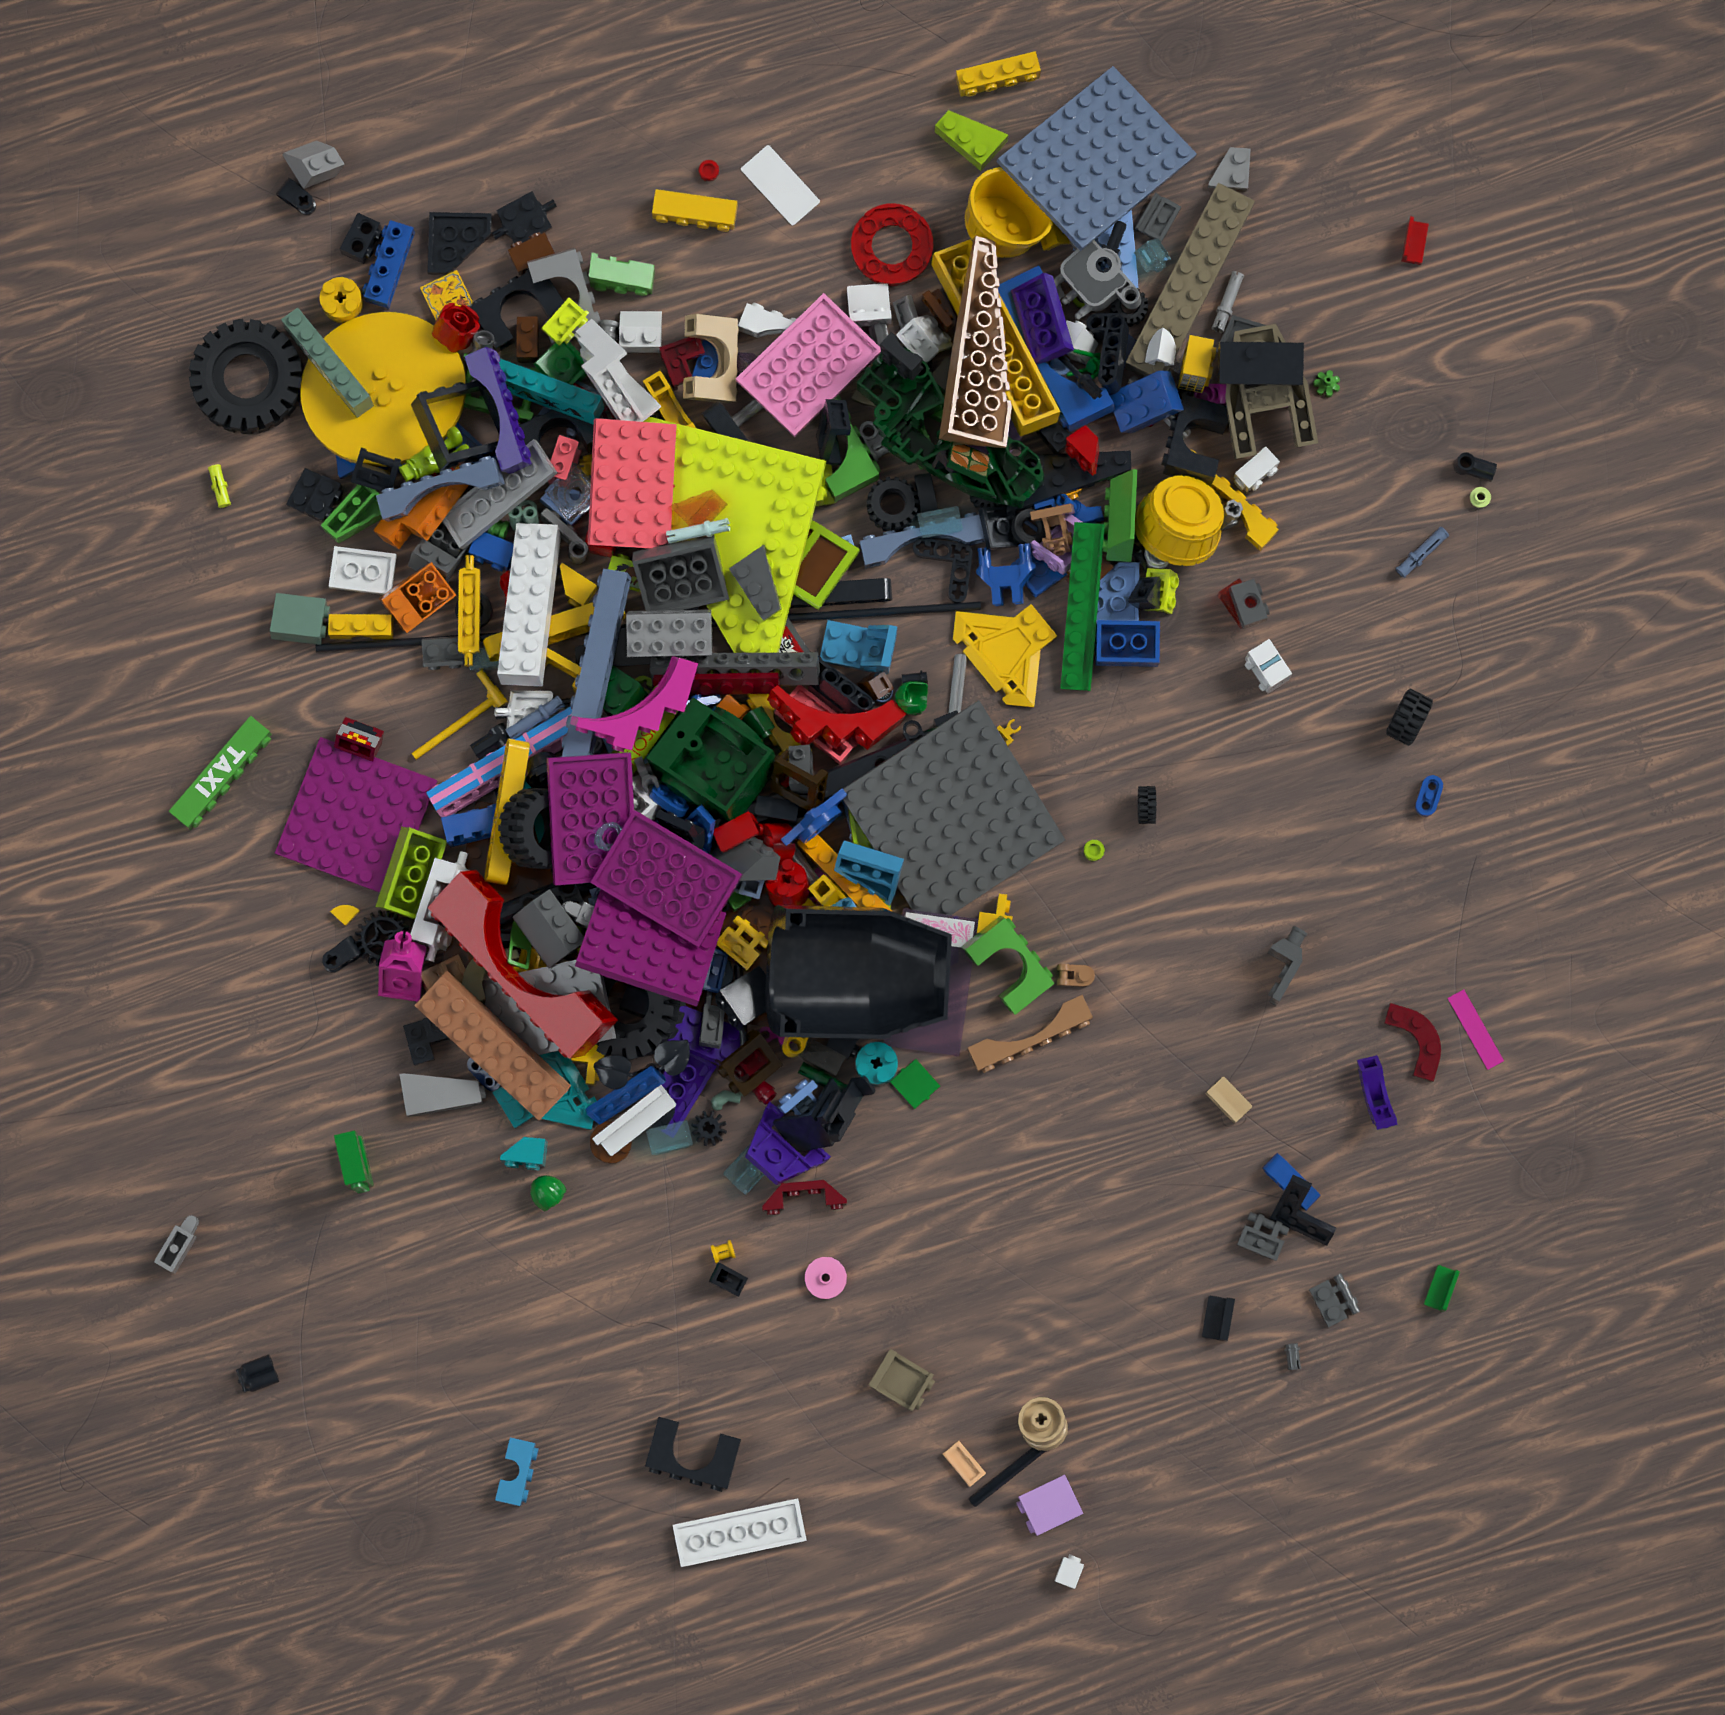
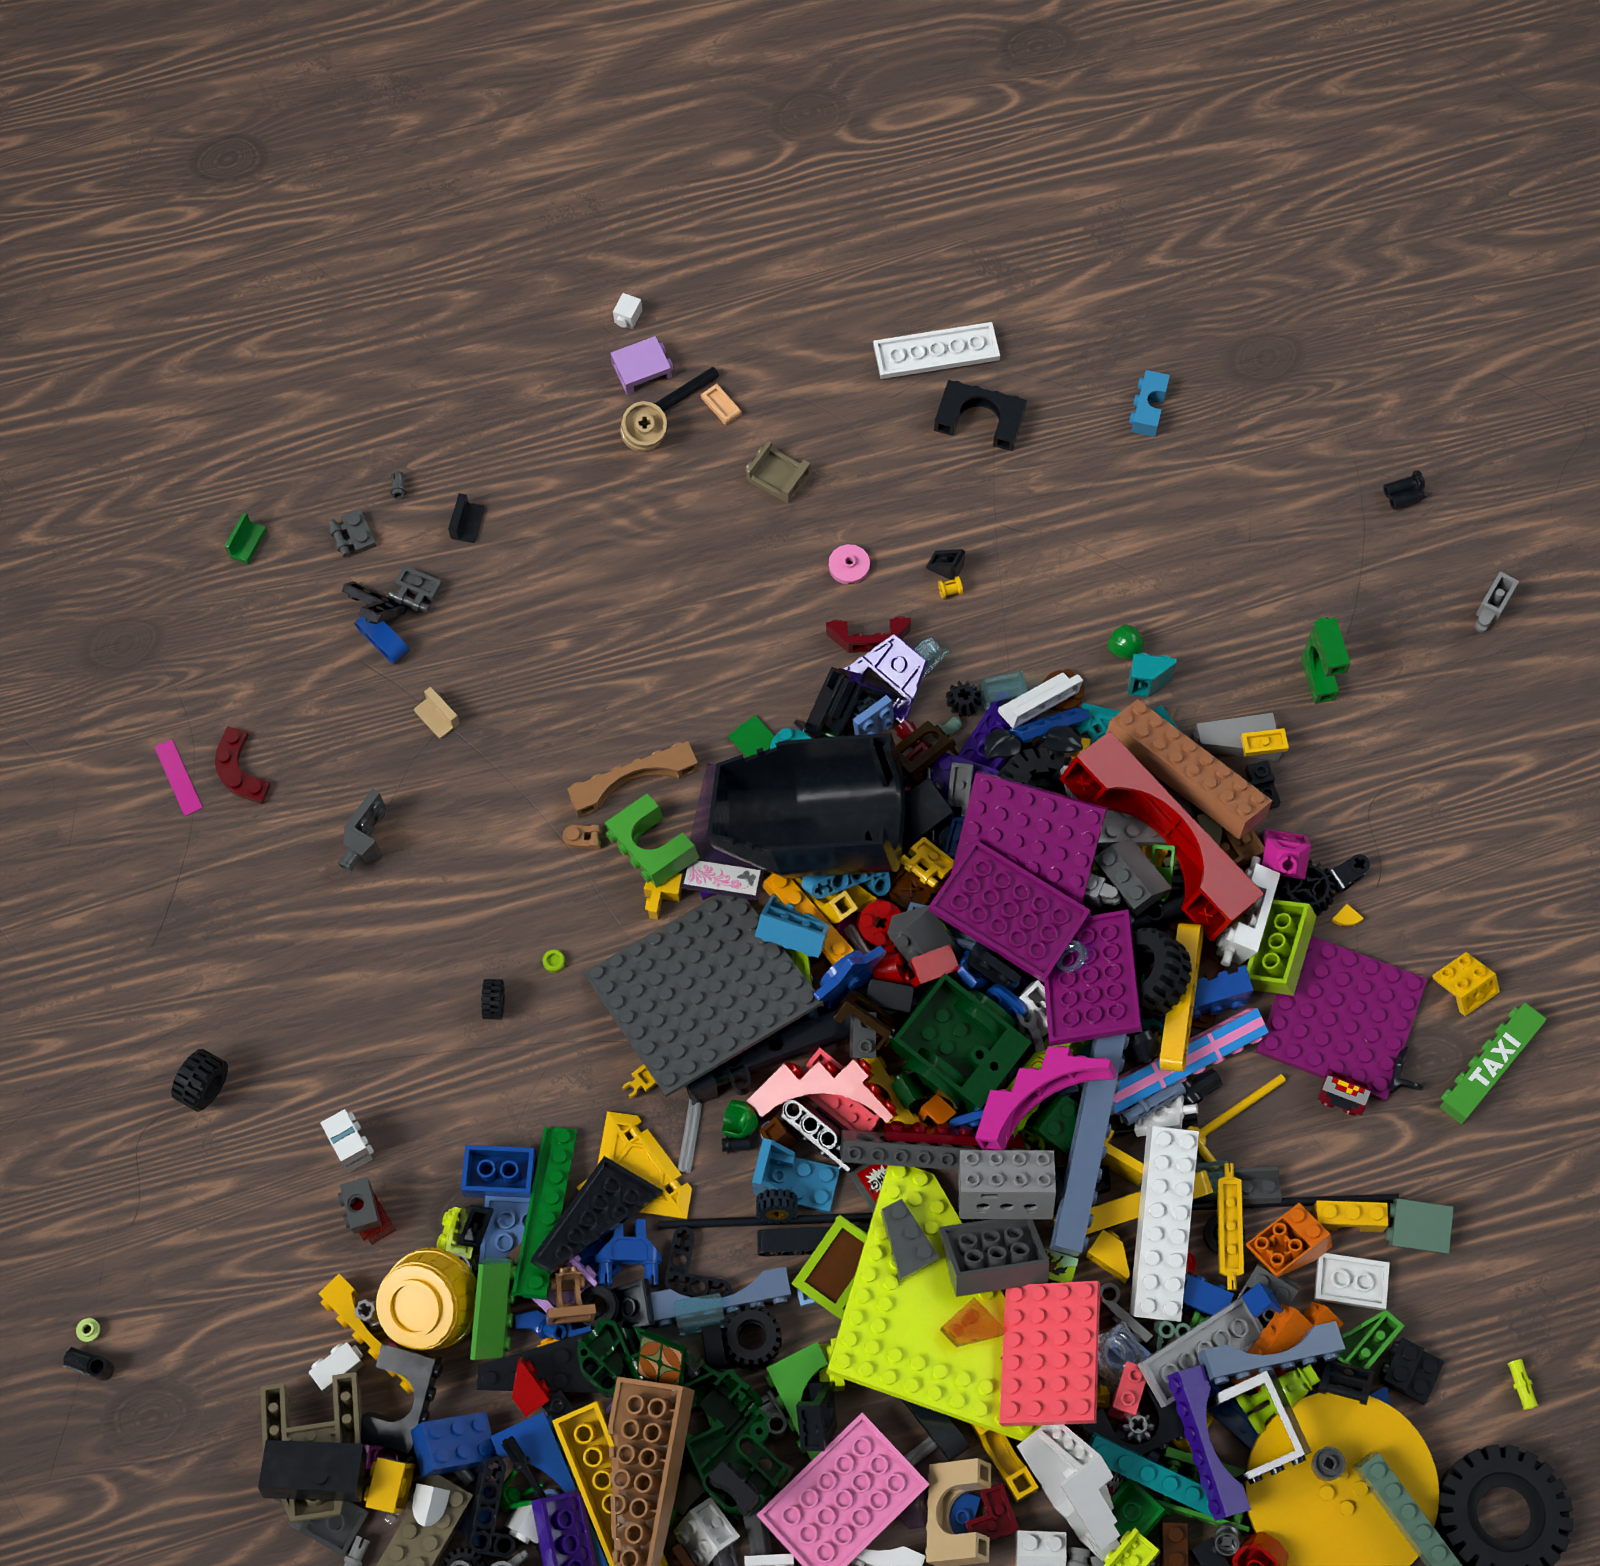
camera: 175 degrees left, 15 degrees down
(238, 851) = (1468, 982): none -> yellow bracket
(310, 755) = (1396, 1081): none -> black piece
(396, 400) = (1328, 1464): none -> dark grey wheel
(416, 1079) = (1264, 742): none -> yellow plate
(445, 538) = (1261, 1299): none -> blue panel
(556, 423) = (1138, 1434): none -> light grey gear
(706, 529) = (964, 1298): light aqua pin -> none
(874, 616) = (776, 1206): none -> black wheel
(1032, 610) = (599, 1207): none -> black wing
(1327, 383) = (248, 1471): bright green plant -> none
(1375, 1092) = (286, 709): dark purple arch -> none
(1415, 558) = (165, 1266): sand blue pin -> none
(1429, 796) = (189, 1005): blue plate -> none

